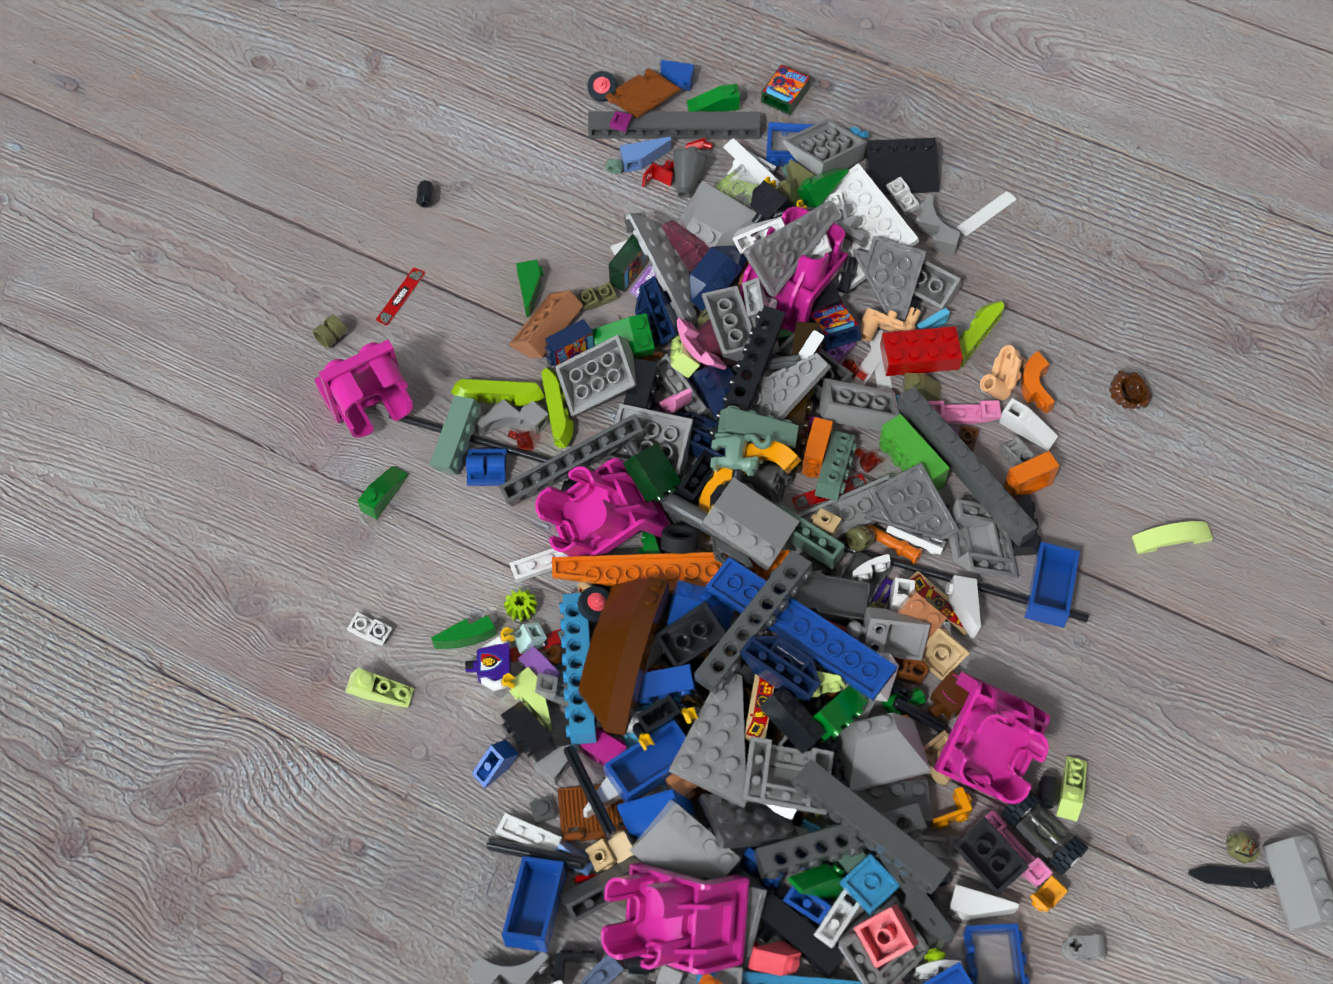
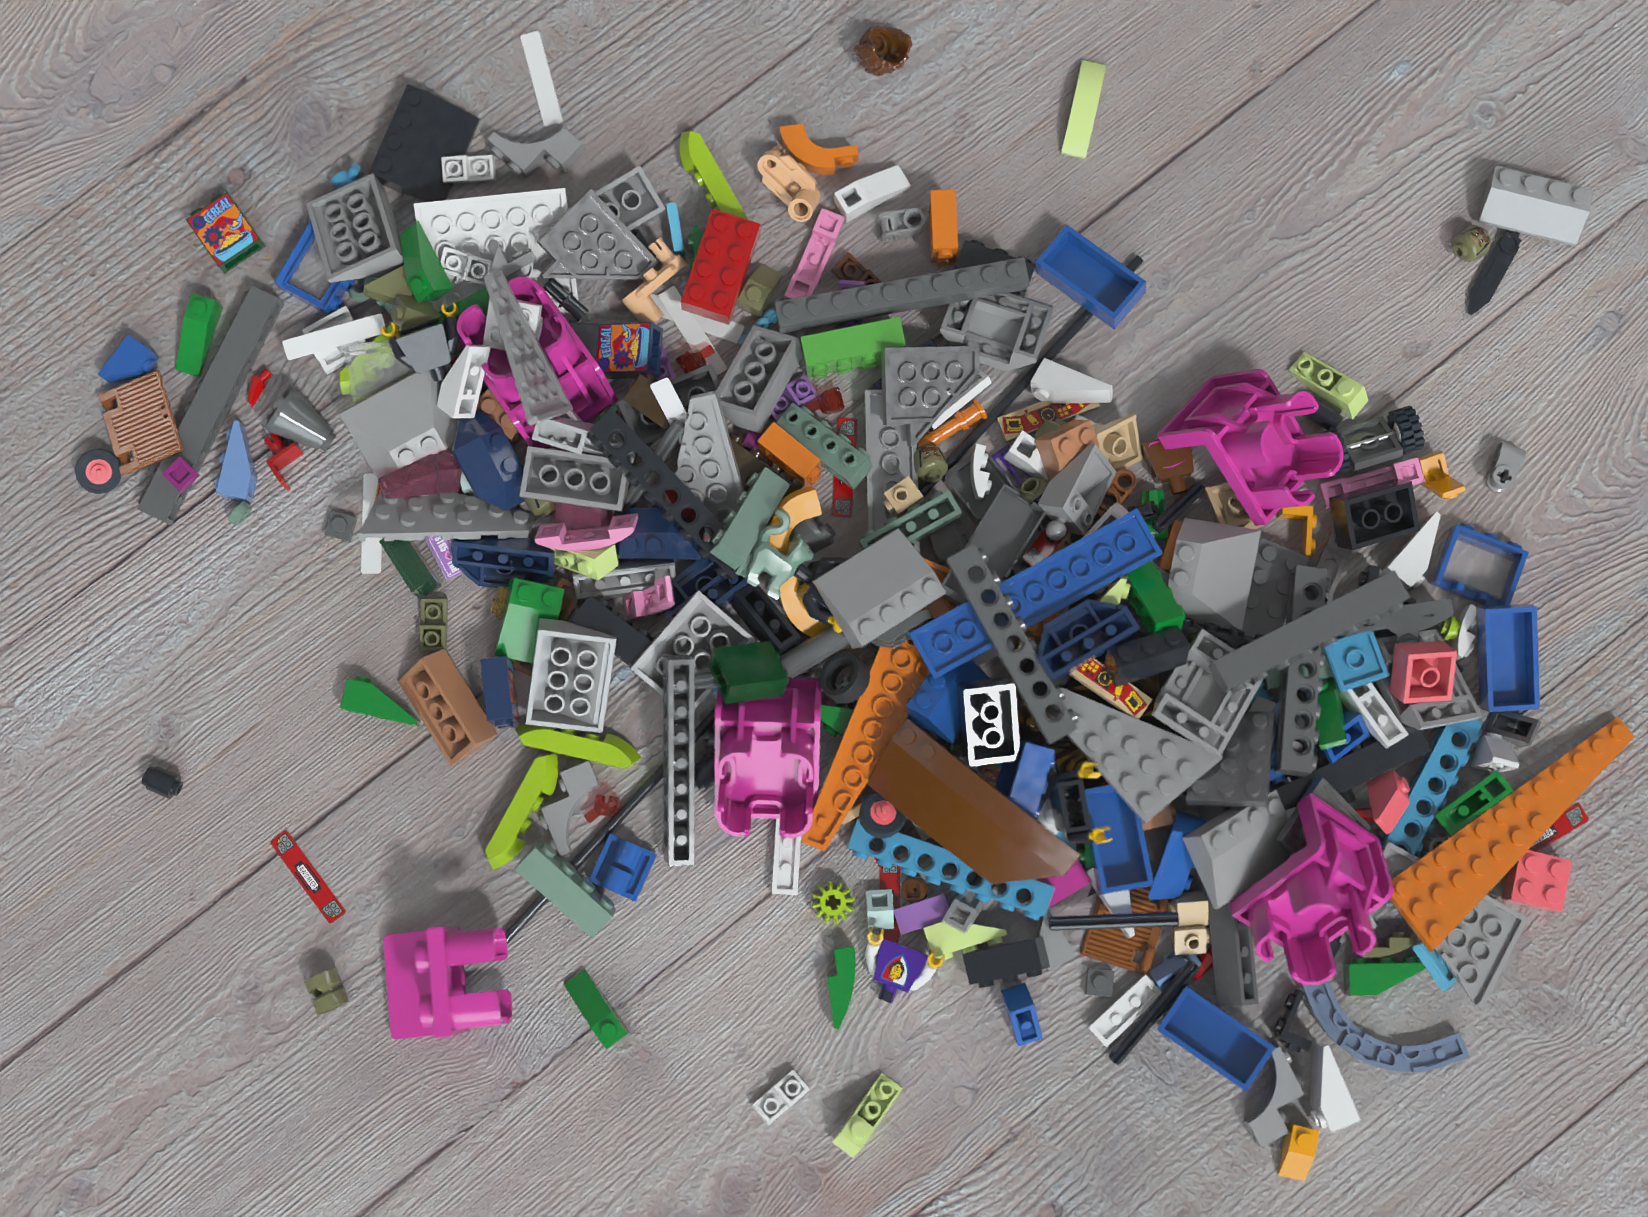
camera: 65 degrees left, 20 degrees up
(863, 438) = (797, 392): none -> medium lavender slope

